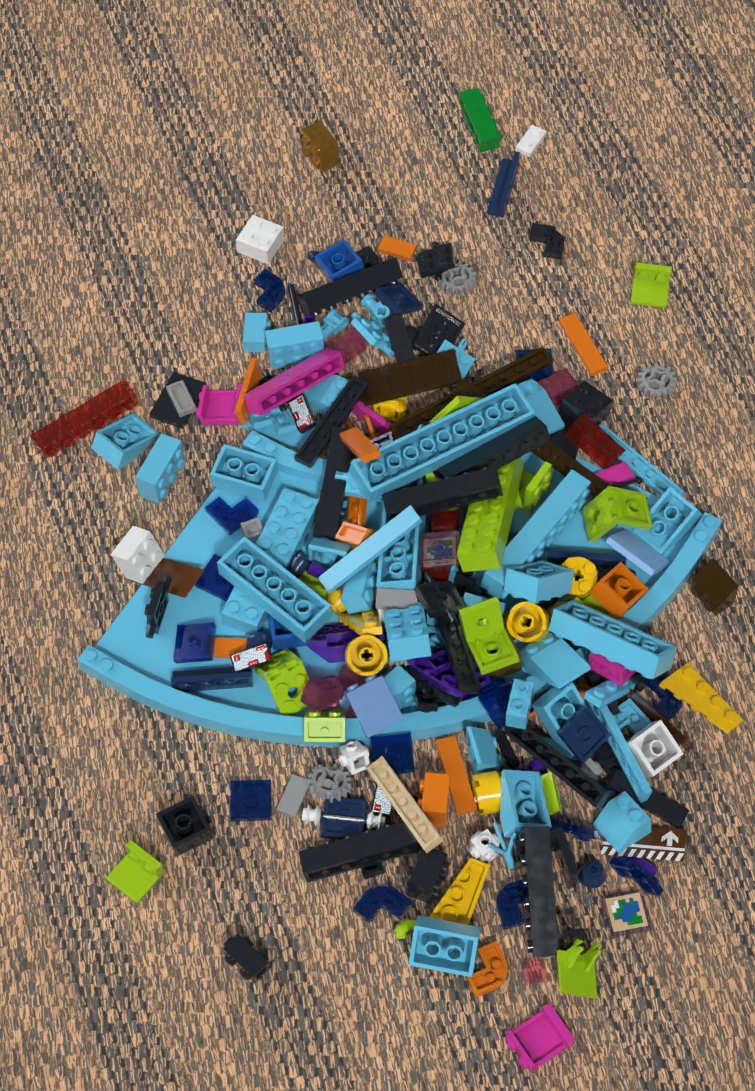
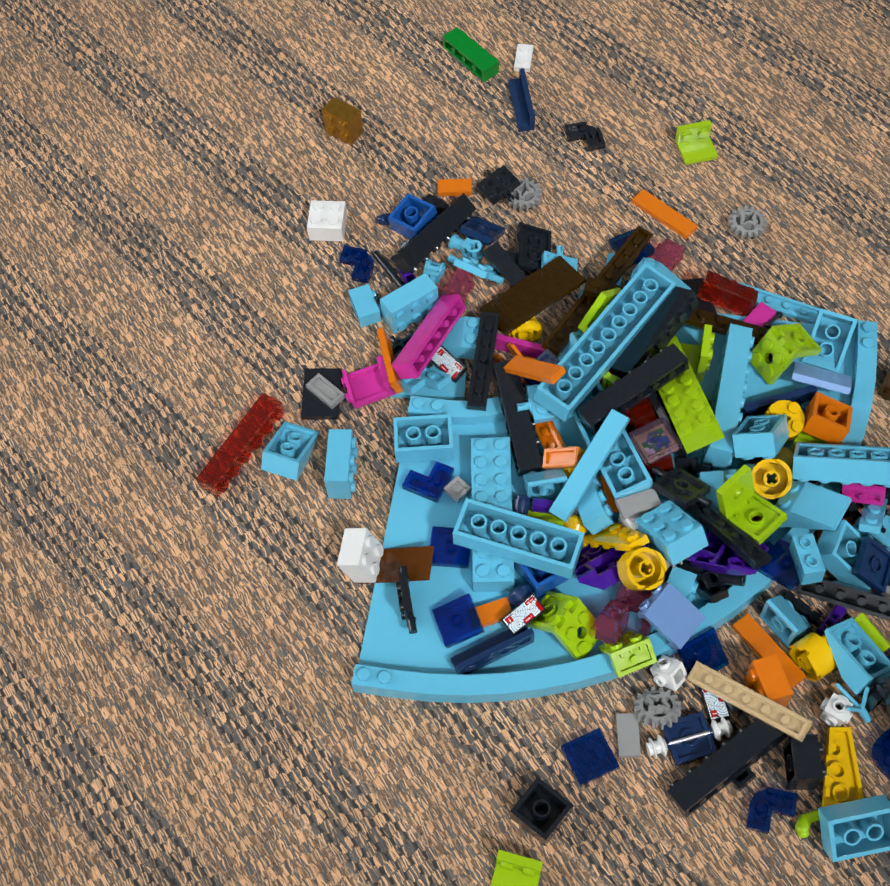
camera: 20 degrees left, 0 degrees up
(585, 400) = (697, 263): black brick -> none

